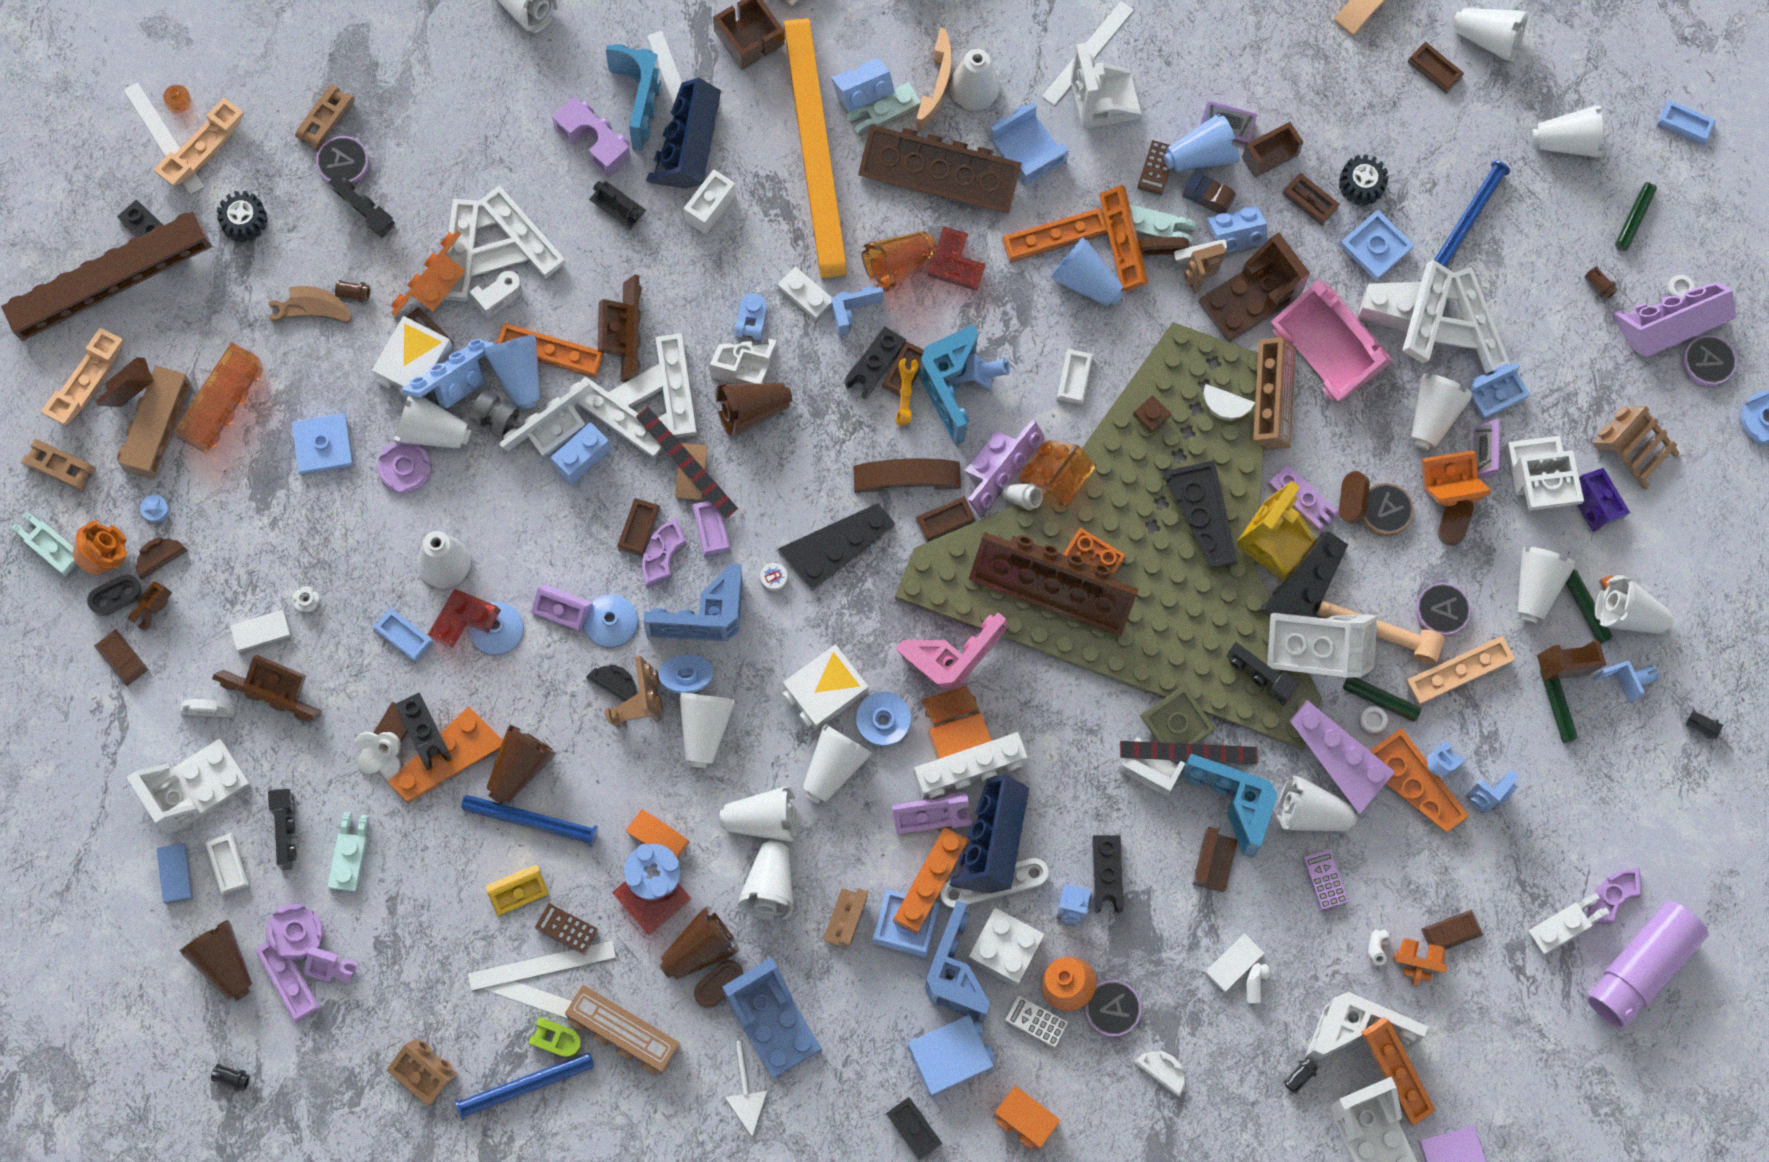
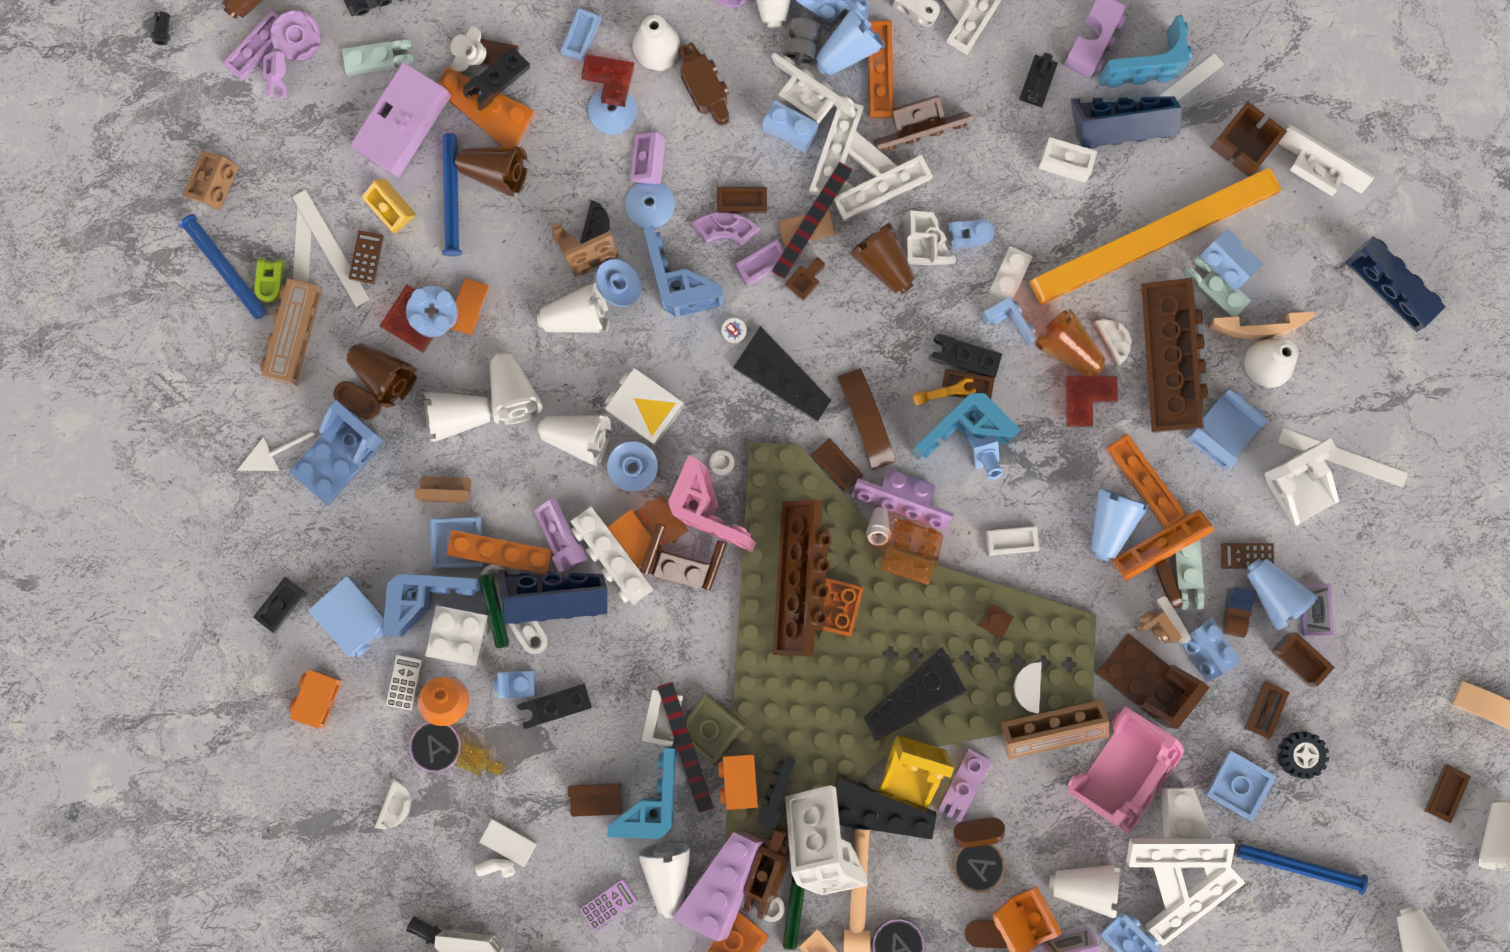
camera: 75 degrees right, 10 degrees up
(432, 844) = (400, 120): none -> lavender brick
(504, 525) = (703, 85): none -> reddish brown hinge
(745, 491) = (804, 281): none -> reddish brown plate
(904, 217) = (1115, 338): none -> white tile
(906, 629) = (721, 462): none -> white tile
(991, 901) = (494, 610): none -> dark green axle
(1004, 701) = (681, 568): none -> plate
(1140, 969) = (475, 760): none -> clear yellow plate
(1240, 706) = (739, 781): none -> orange brick
(1338, 707) = (767, 872): none -> reddish brown hinge

